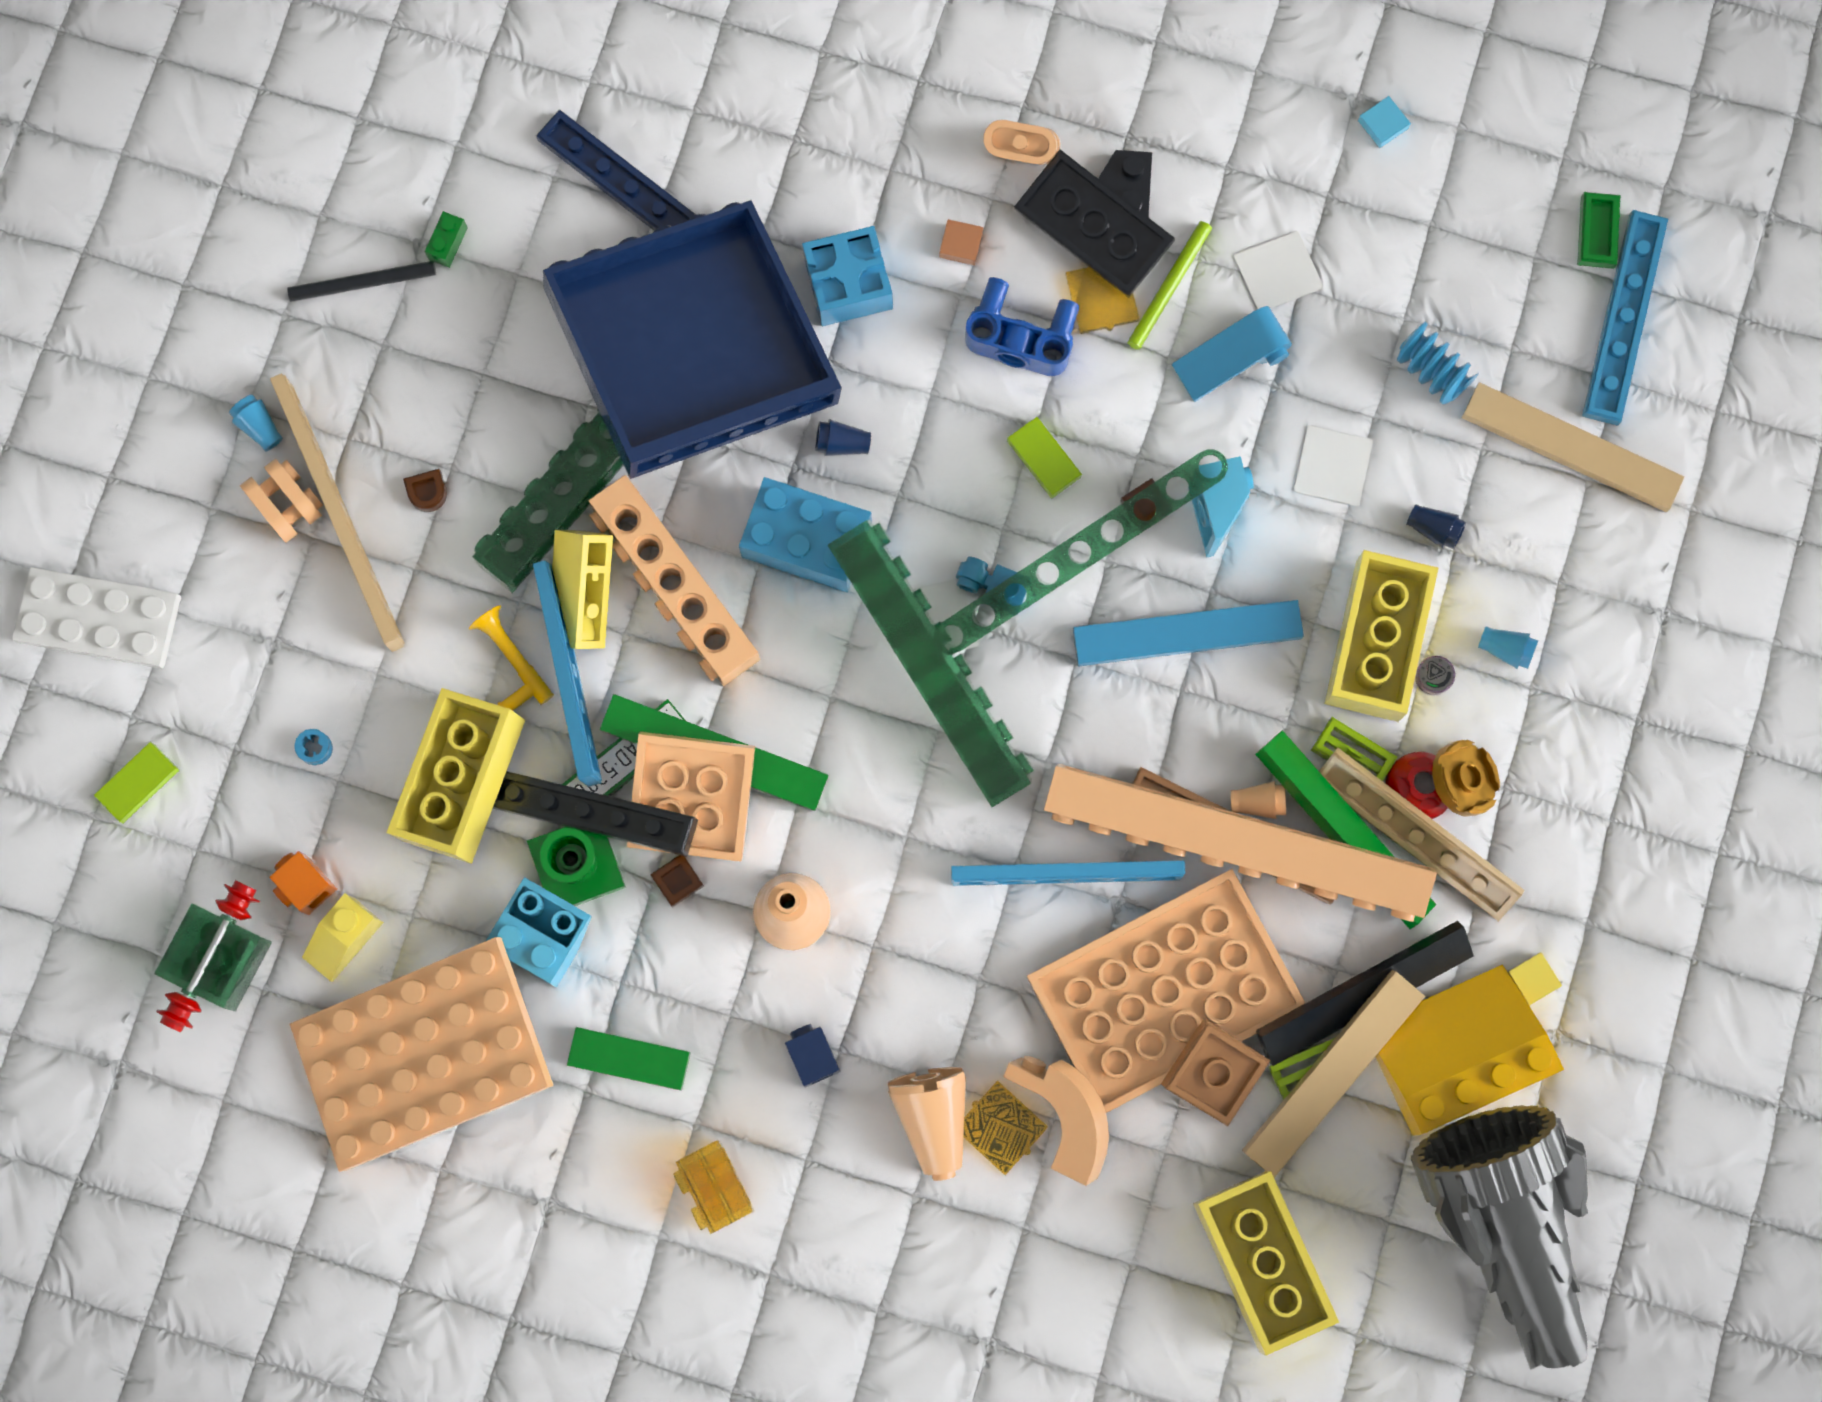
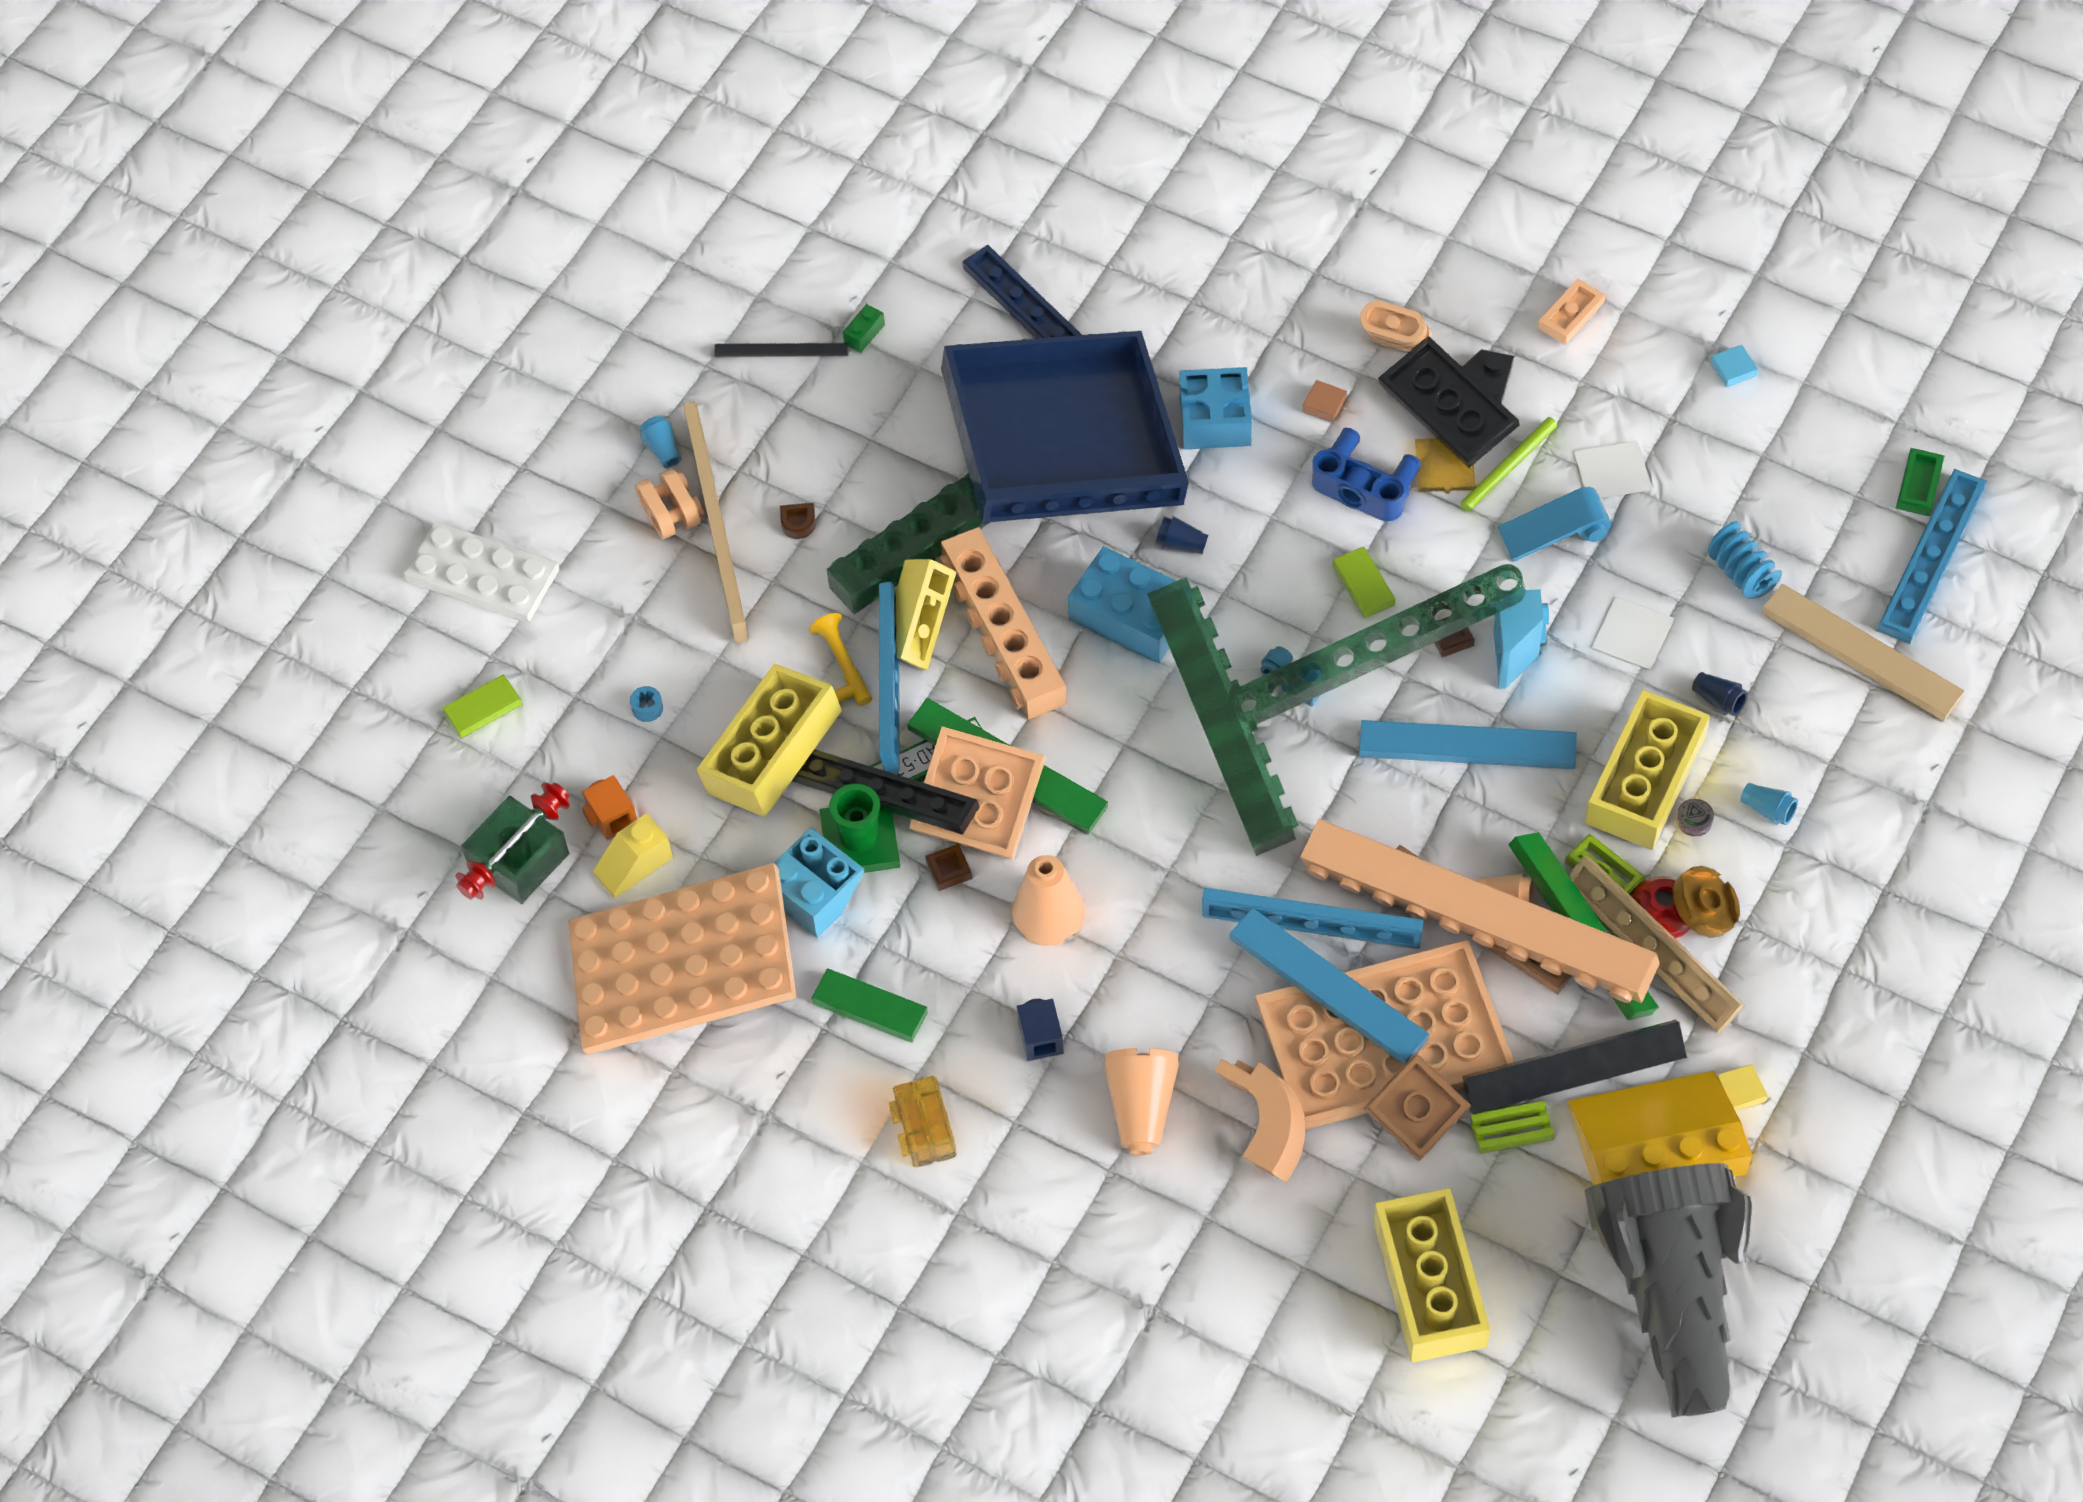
camera: 15 degrees right, 20 degrees down
(1002, 1127) = (1204, 1126): clear yellow piece -> none
(1101, 954) = (1329, 986): none -> dark azure tile
(1203, 85) = (1571, 311): none -> light nougat plate
(1333, 1073) = (1531, 1125): tan tile -> none

